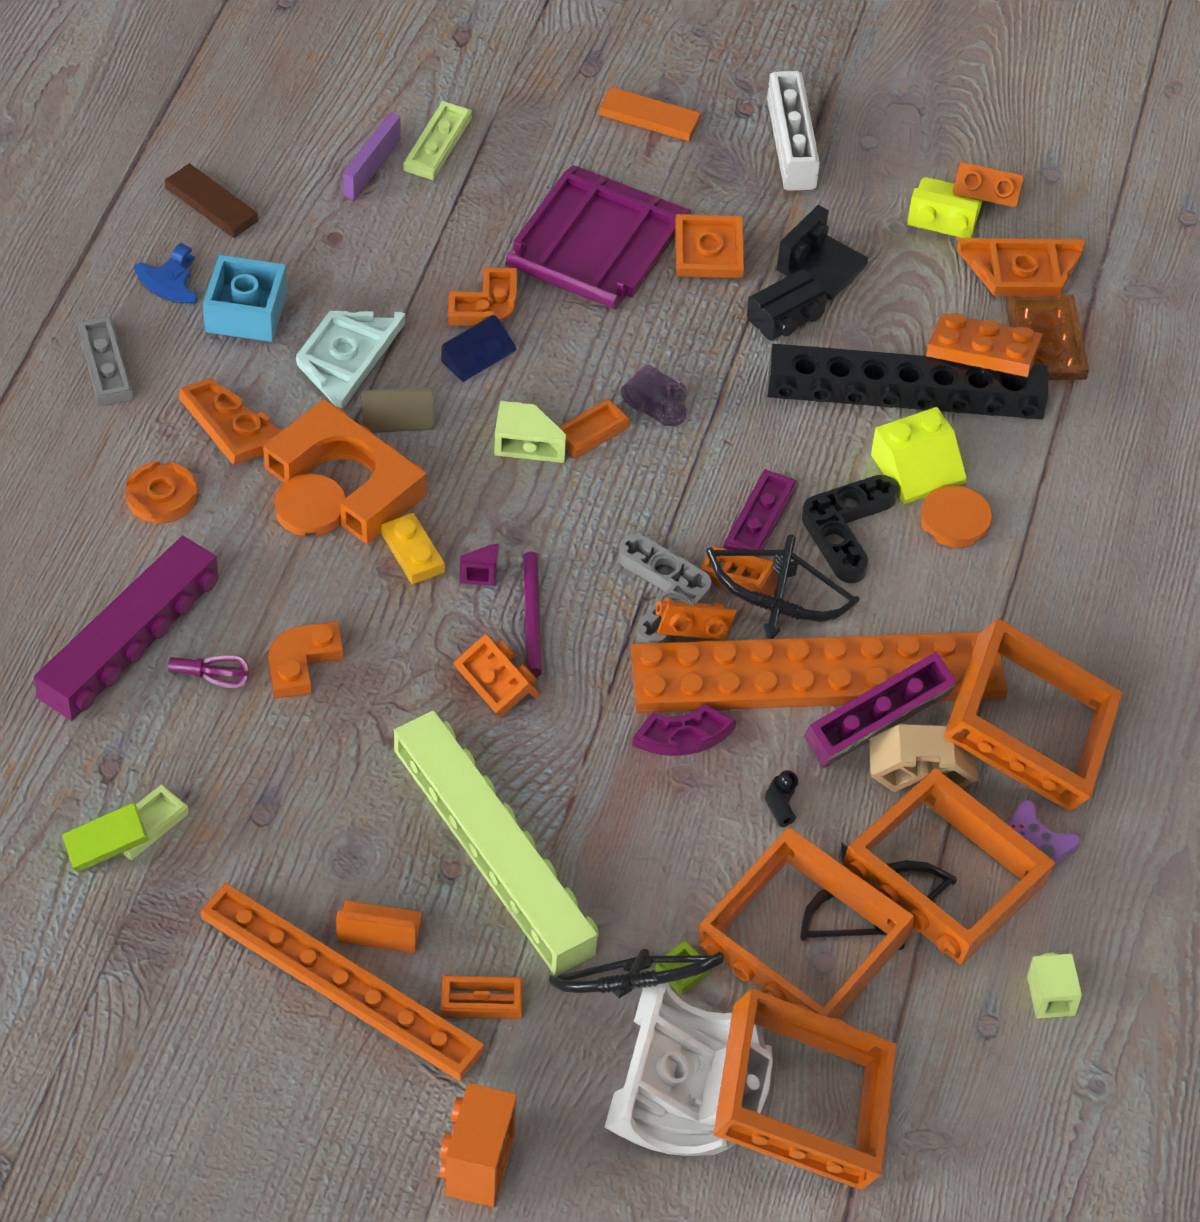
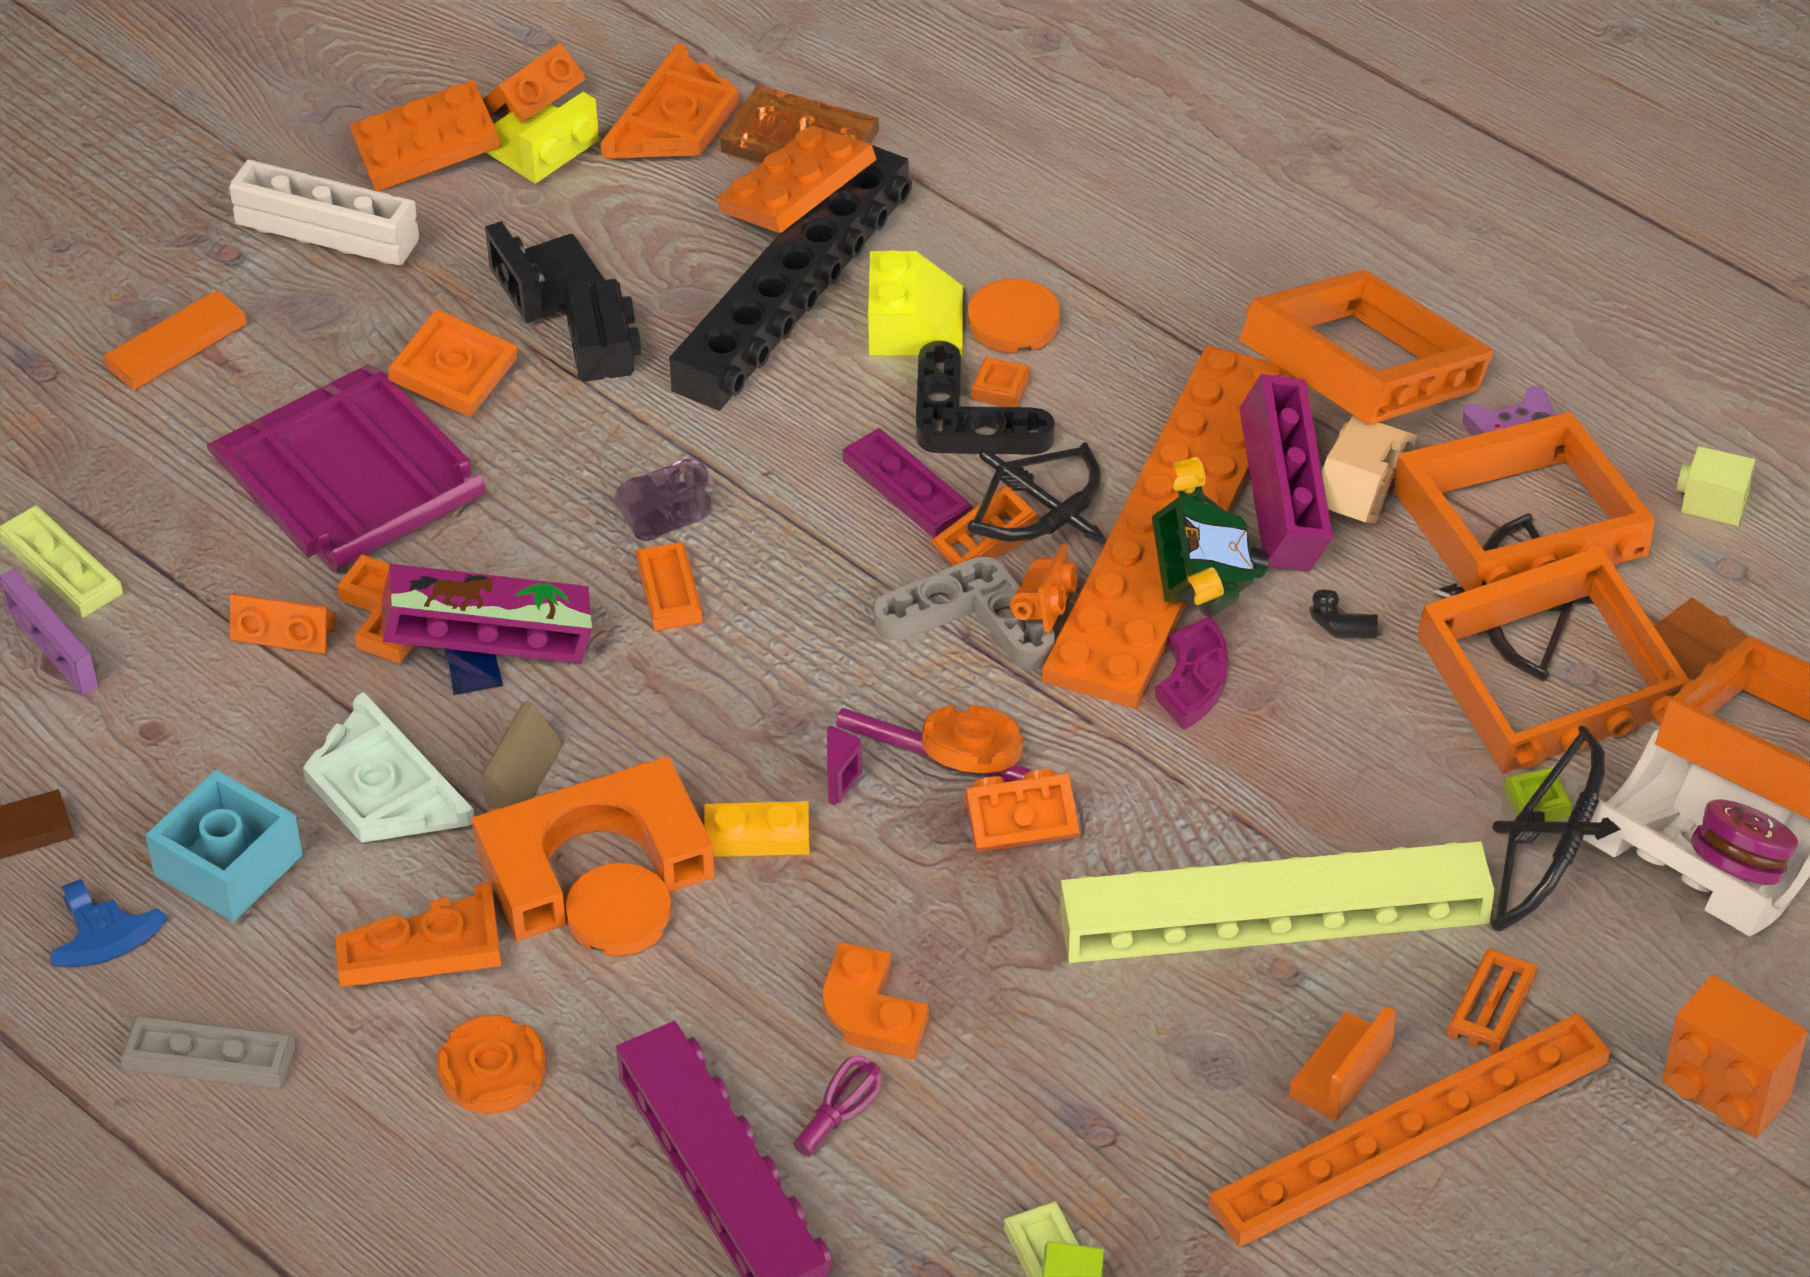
camera: 60 degrees left, 5 degrees down
(445, 255) = (280, 623): none -> orange hinge
(491, 339) = (486, 613): none -> magenta brick
(527, 434) = (646, 644): yellowish green slope -> none
(543, 627) = (972, 740): none -> orange tile
(677, 1091) = (1744, 842): none -> magenta head
(773, 688) = (1203, 547): none -> torso
(887, 532) = (1000, 382): none -> orange tile
(896, 1020) = (1697, 636): none -> clear orange piece
(906, 152) = (425, 135): none -> orange plate

